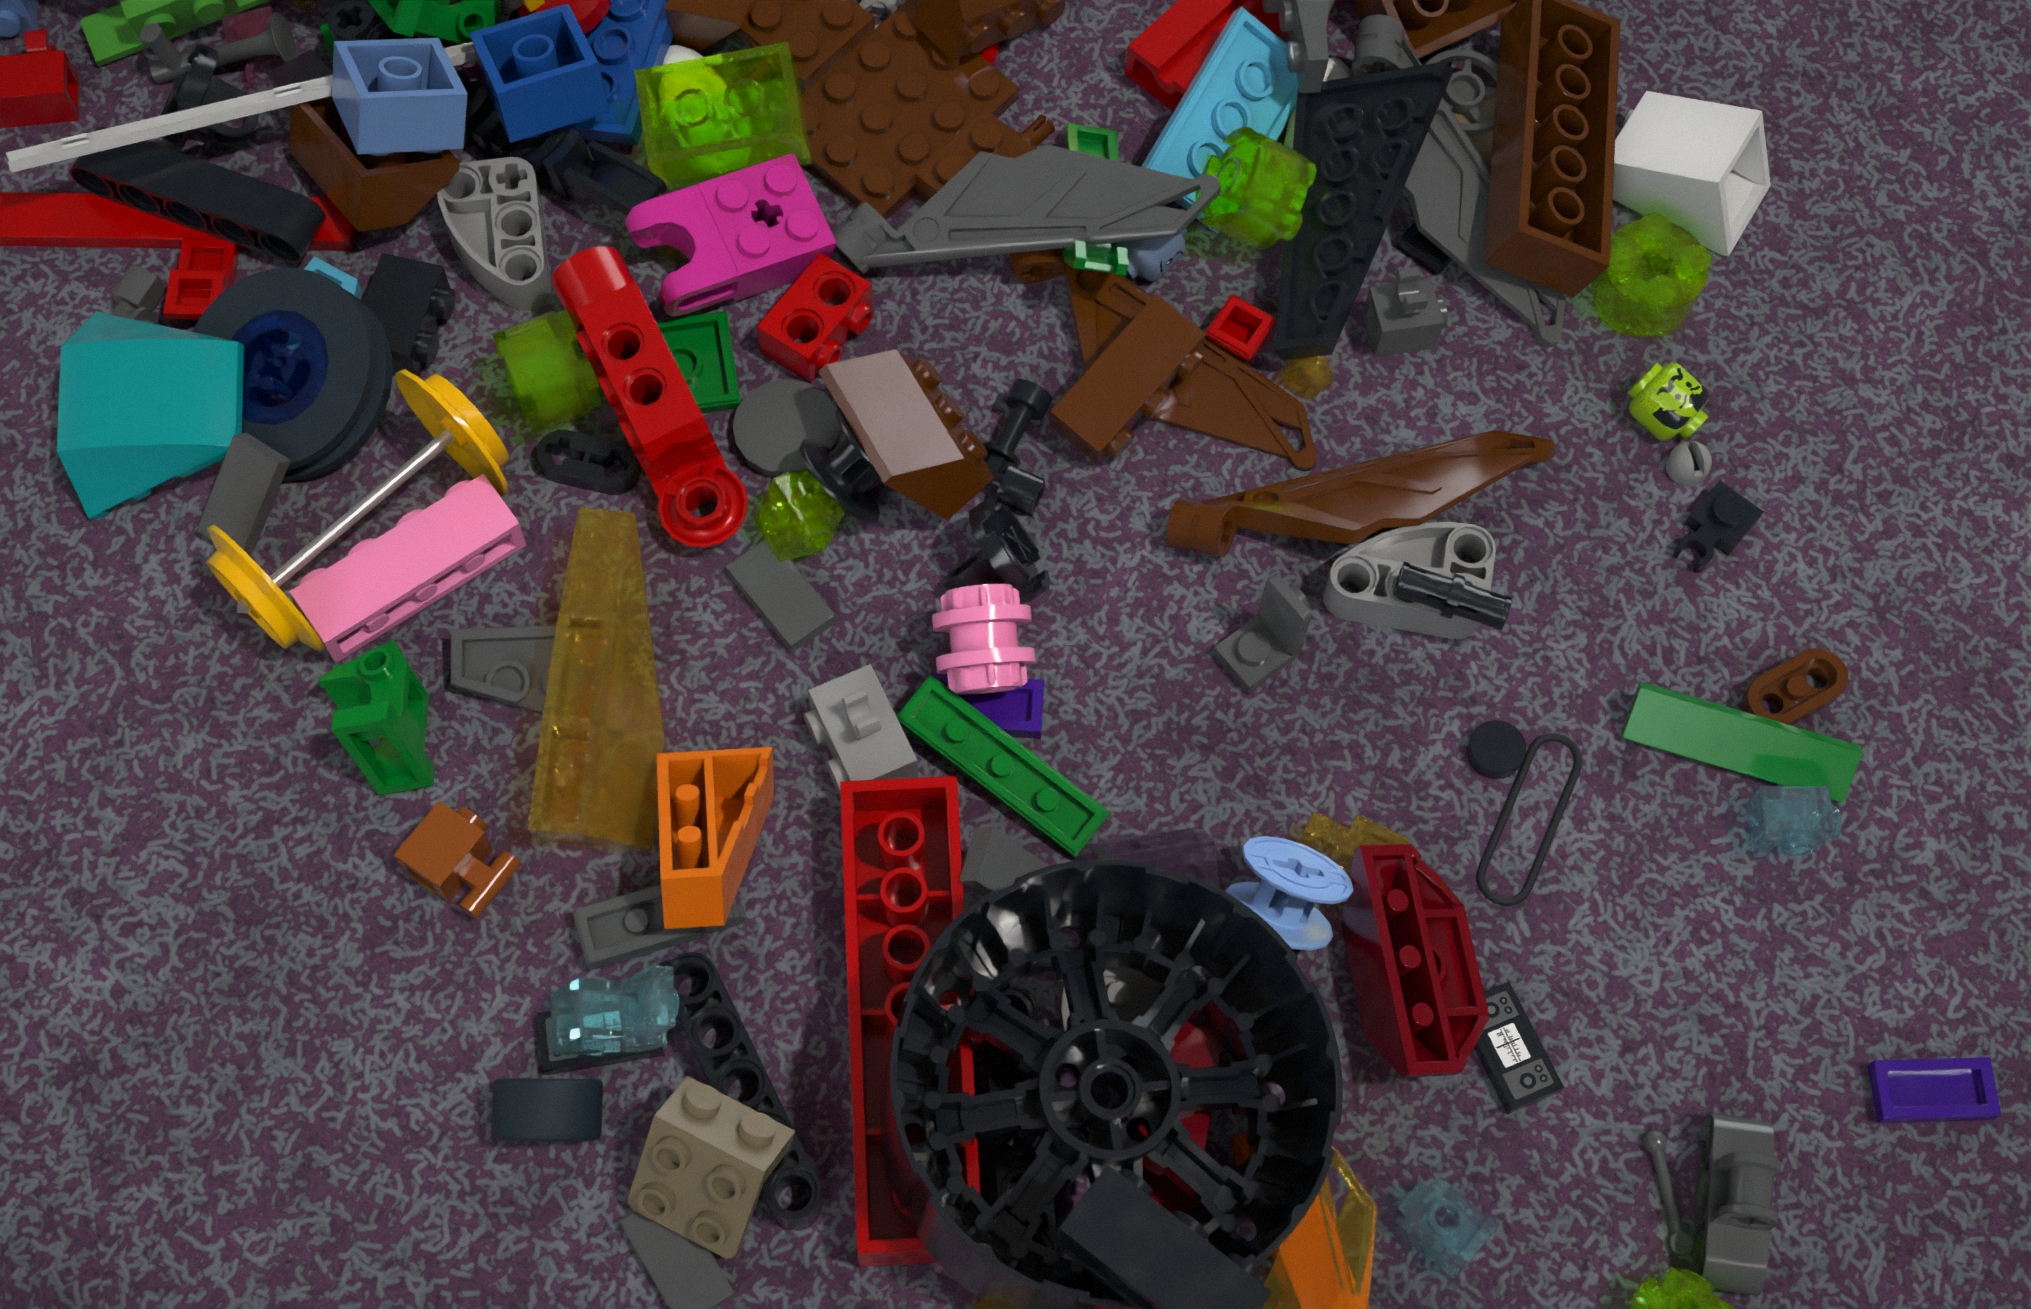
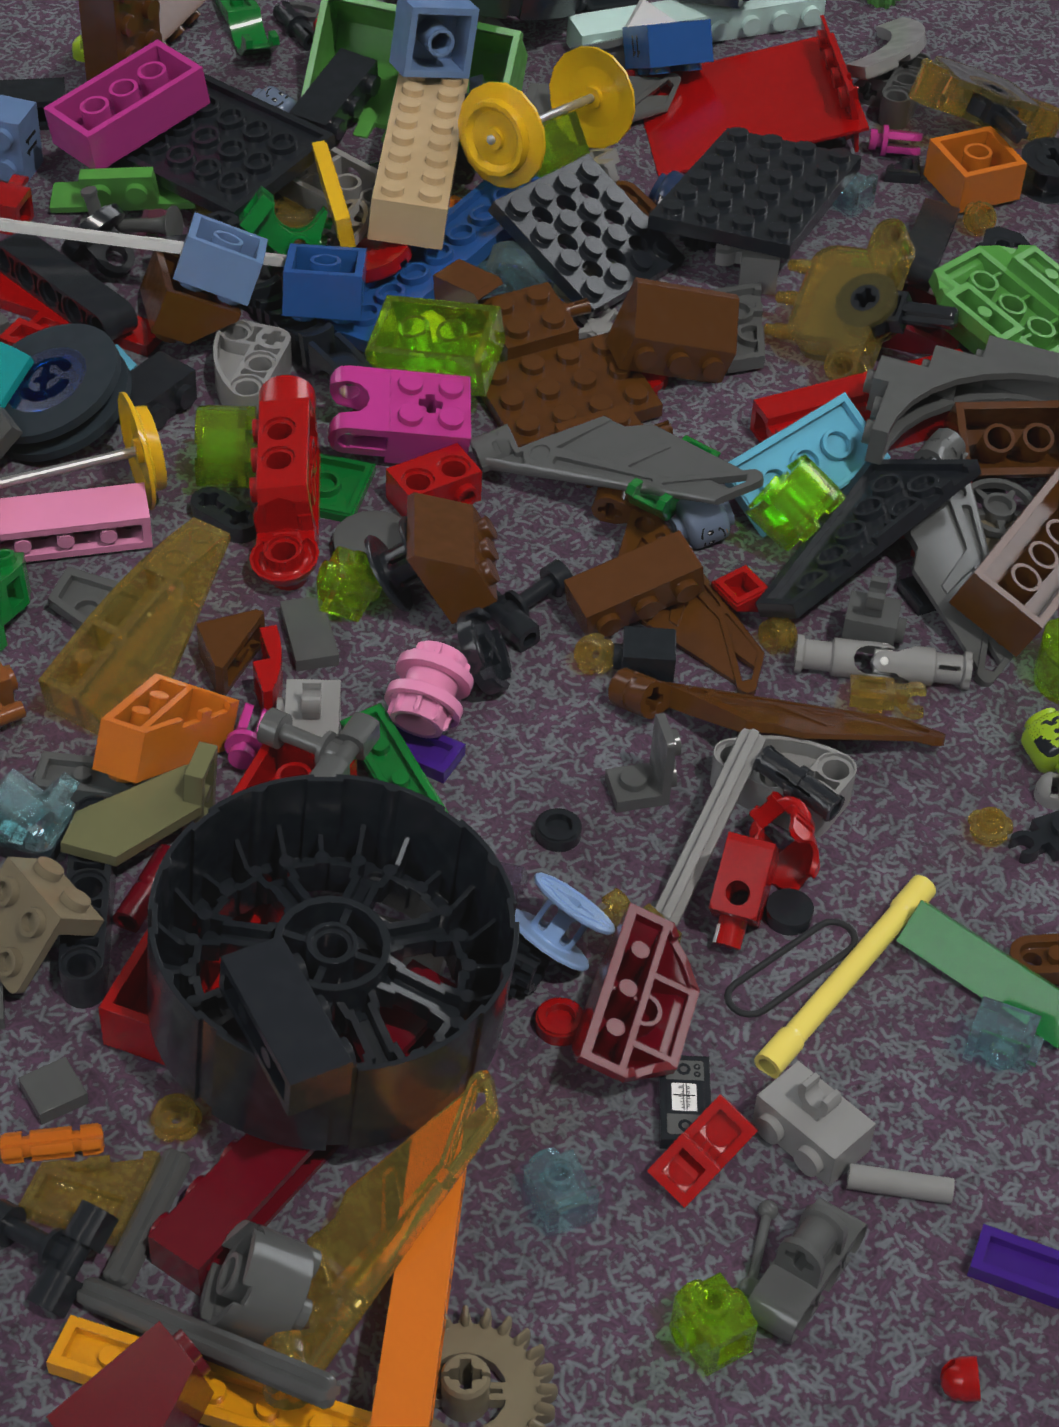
camera: 25 degrees right, 20 degrees down
(702, 663) = (229, 646): none -> reddish brown slope
(751, 959) = (145, 813): none -> olive piece
(776, 686) = (268, 671): none -> red slope
(795, 1045) = (134, 907): none -> dark red piece
(797, 780) = (243, 743): none -> dark pink arm
(939, 789) = (332, 751): none -> dark grey bar
(1117, 502) = (584, 650): none -> clear yellow plate
(1184, 469) = (647, 651): none -> black brick
(1201, 749) = (558, 830): none -> black tile
(1339, 1001) = (558, 1021): none -> red tile
(1375, 686) = (710, 825): none -> light grey axle
(1451, 754) = (746, 867): none -> red torso
(1456, 413) = (877, 694): none -> clear yellow plate
(1466, 356) = (917, 661): none -> light grey piece
(1467, 685) = (799, 858): none -> red helmet
(1560, 1107) = (702, 1150): none -> red slope
(1578, 916) = (790, 1039): none -> light yellow piece
(1642, 552) = (989, 826): none -> clear yellow plate
(1656, 1021) = (812, 1123): none -> light grey brick
(1768, 1046) = (900, 1183): none -> light grey piece
(1937, 1255) = (961, 1379): none -> red hinge

